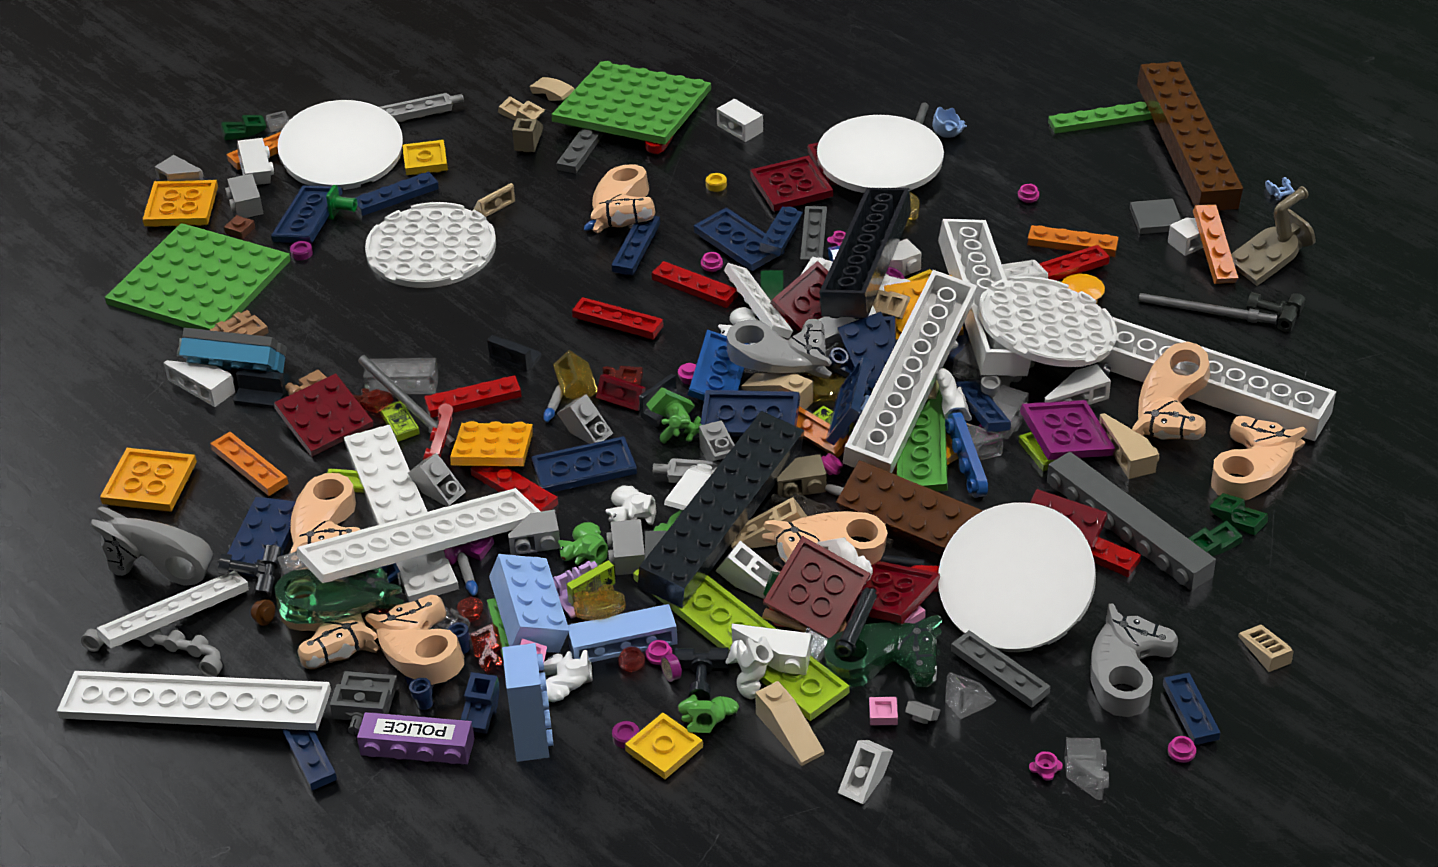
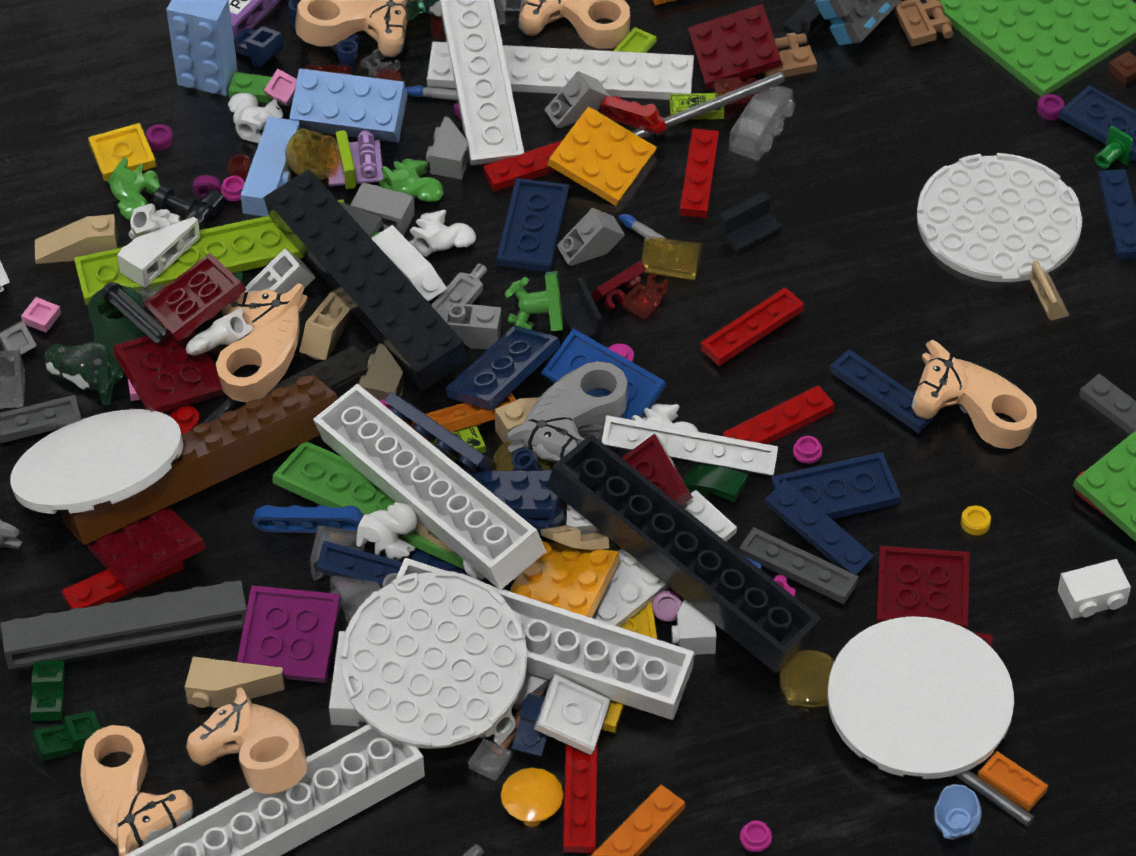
camera: 115 degrees right, 10 degrees up
(907, 109) = (1013, 781): none -> orange plate

